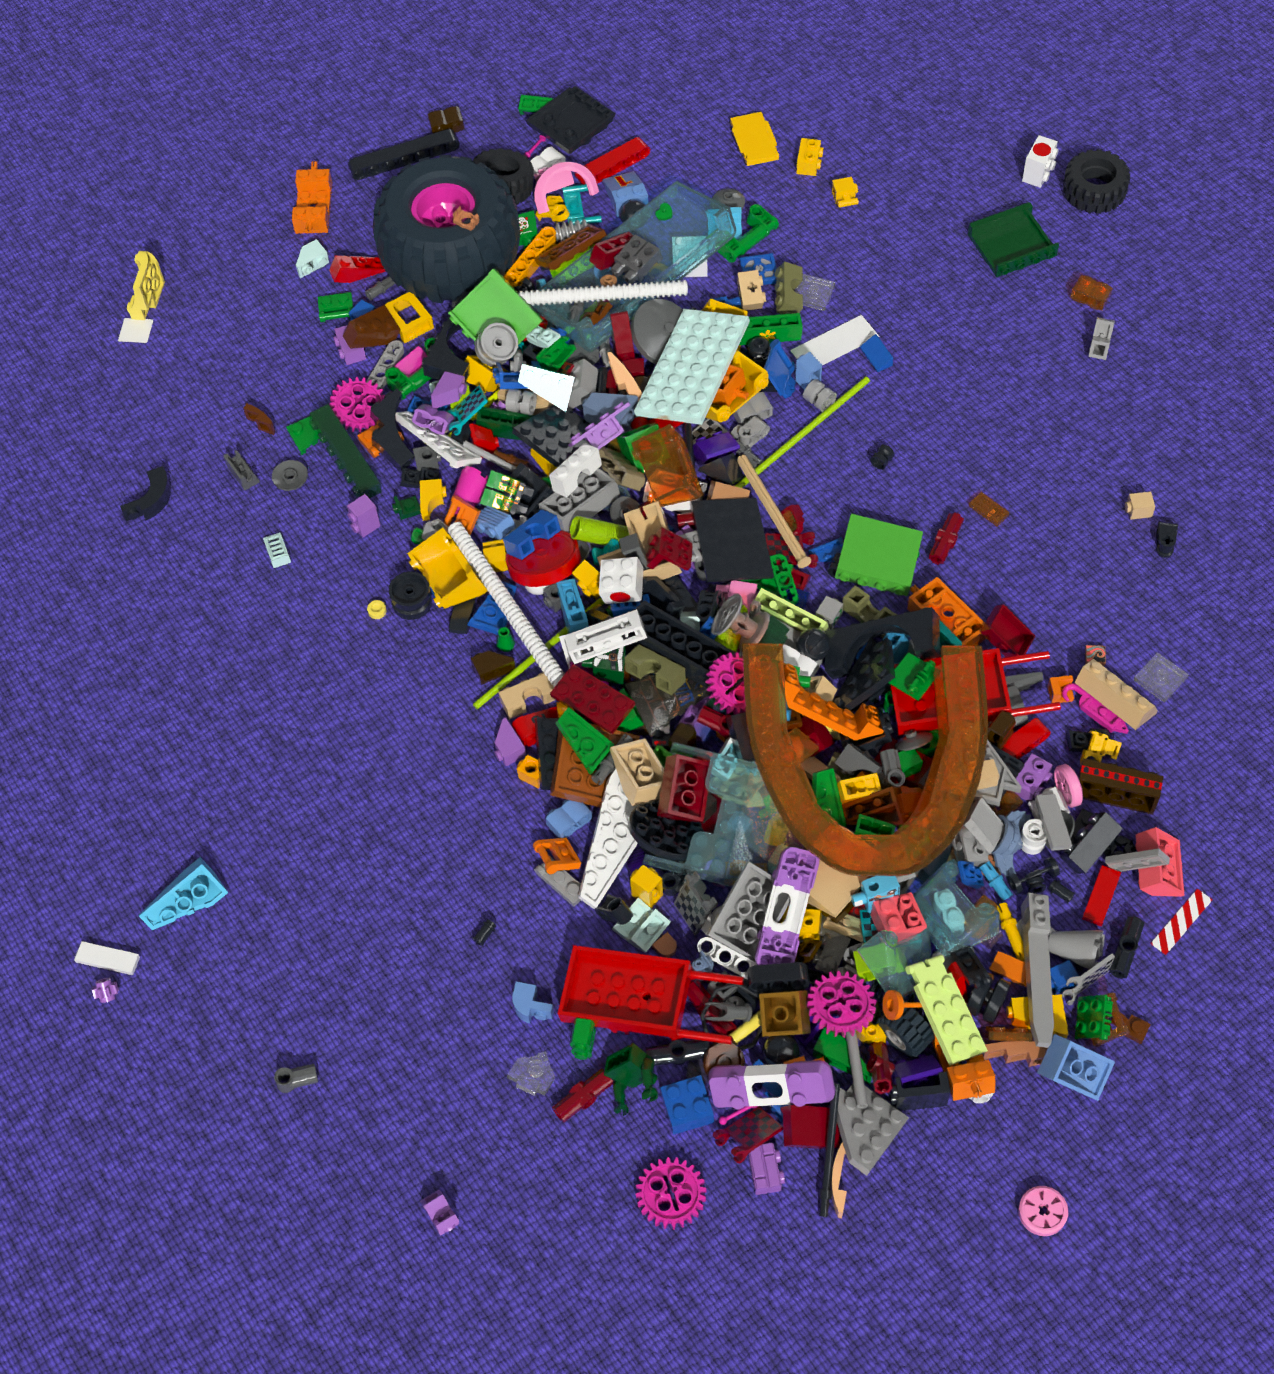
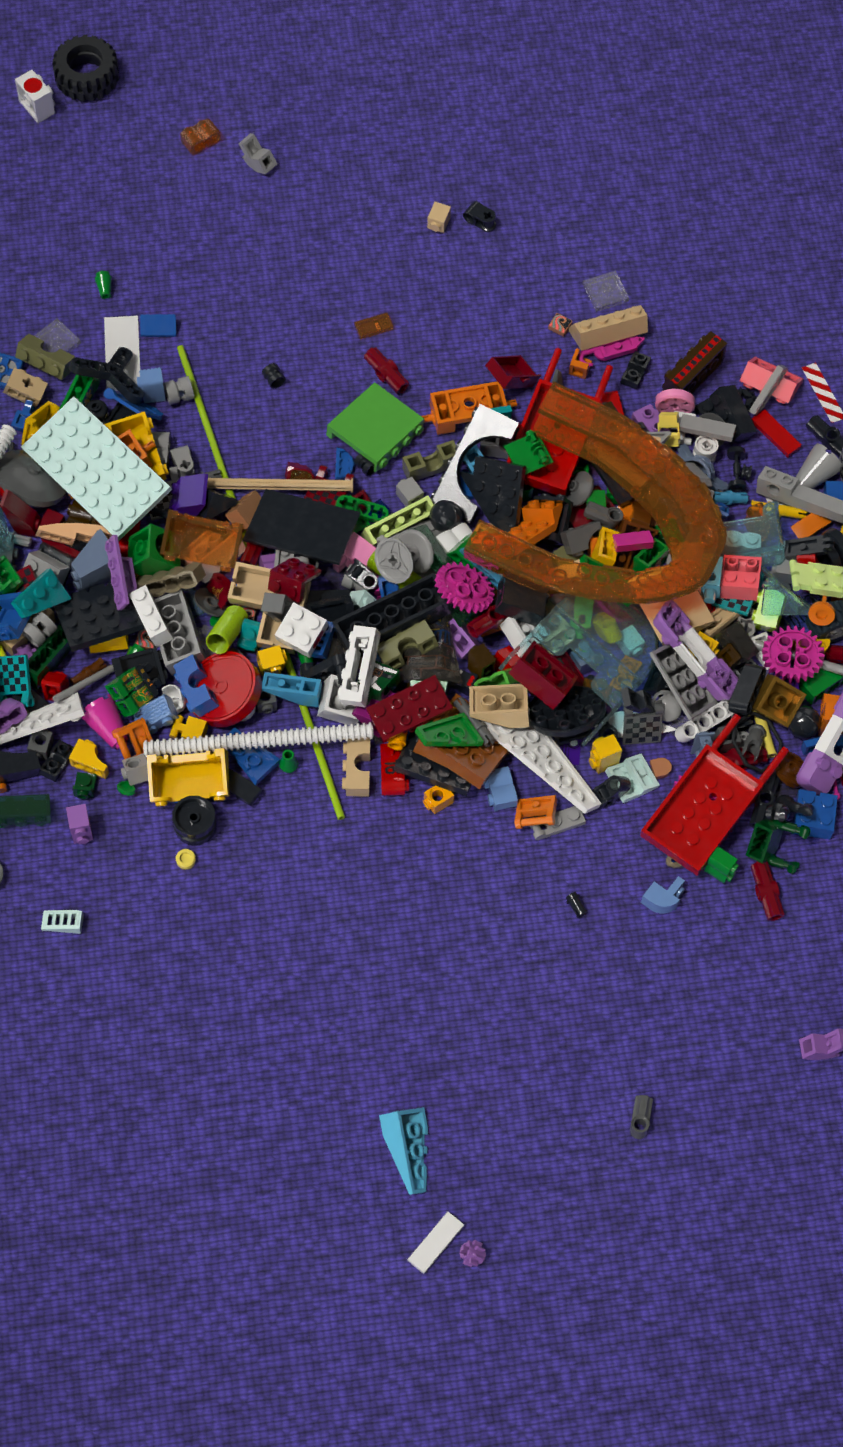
camera: 70 degrees left, 5 degrees up
(491, 666) = (308, 785): dark brown slope -> none
(508, 745) = (398, 805): medium lavender slope -> none
(532, 1074) = (730, 921): clear plate -> none
(674, 1068) = (785, 806): none -> black piece
(702, 880) = (637, 701): none -> black slope
(794, 333) = (112, 372): none -> black piece
(875, 804) = (633, 541): none -> dark pink slope
(891, 297) = (103, 281): none -> green cone
(1011, 240) = (103, 164): dark green panel -> none
(1036, 782) = (670, 420): none -> light yellow piece
(1061, 891) = (756, 459): black pin -> none
(1100, 745) = (650, 364): yellow piece -> none

